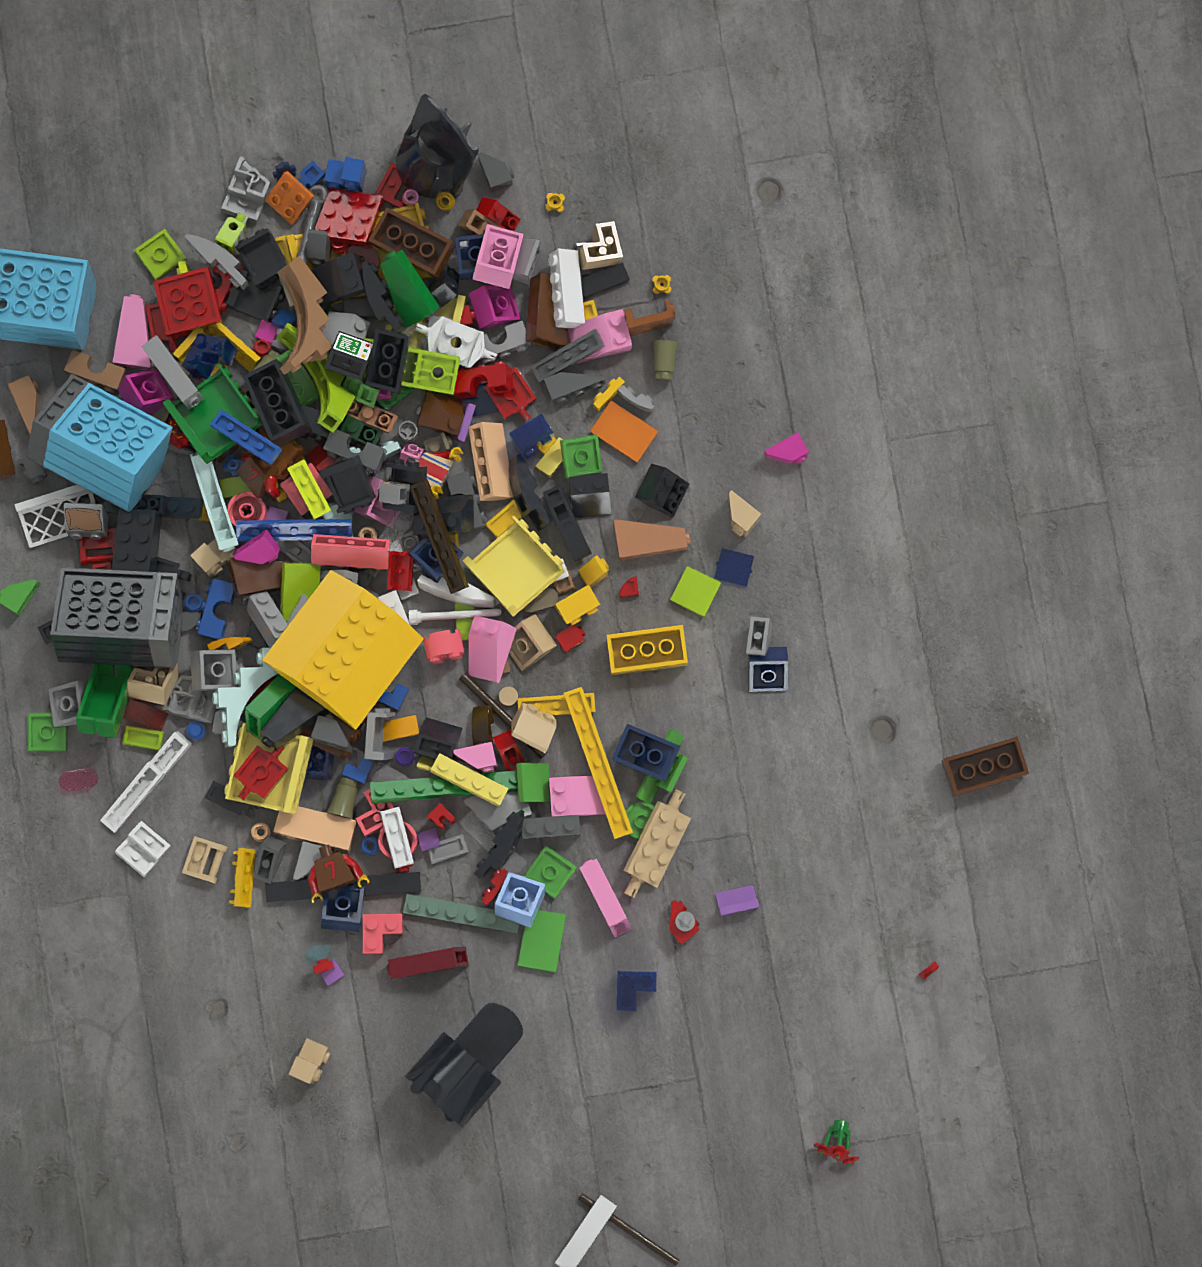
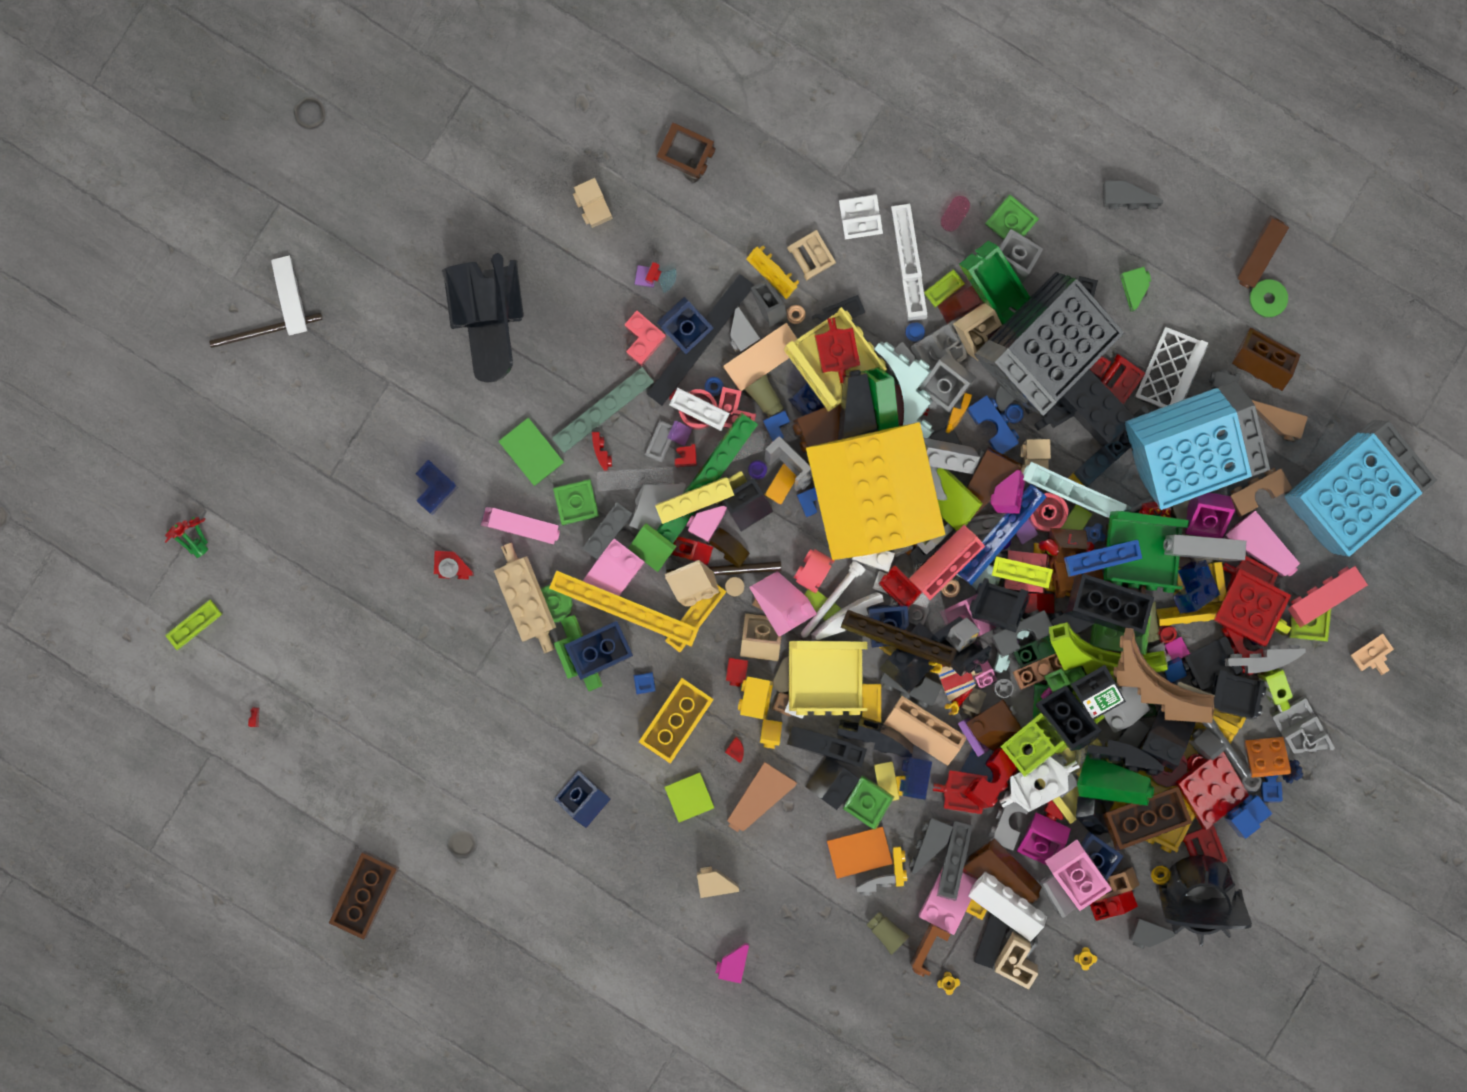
camera: 130 degrees right, 5 degrees up
(86, 520) = (1146, 384): slope -> none
(131, 255) = (1327, 596): none -> coral brick
(145, 187) = (1373, 655): none -> light nougat hinge
(193, 1007) = (668, 142): none -> reddish brown window
(330, 733) = (820, 427): dark grey slope -> none
(333, 872) = (715, 340): reddish brown torso -> none
(410, 192) = (1189, 854): bright pink hinge -> none
(428, 962) = (588, 353): dark red slope -> none
(505, 844) = (625, 485): black slope -> none
(519, 899) = (573, 460): light blue brick -> none
(640, 699) = (644, 683): none -> blue tile
(662, 490) = (788, 841): black slope -> none
(734, 567) = (682, 843): clear blue piece -> none
(737, 900) = (431, 621): medium lavender panel -> none
(759, 636) = (611, 813): light grey slope -> none
(901, 1080) = (193, 624): none -> lime tile

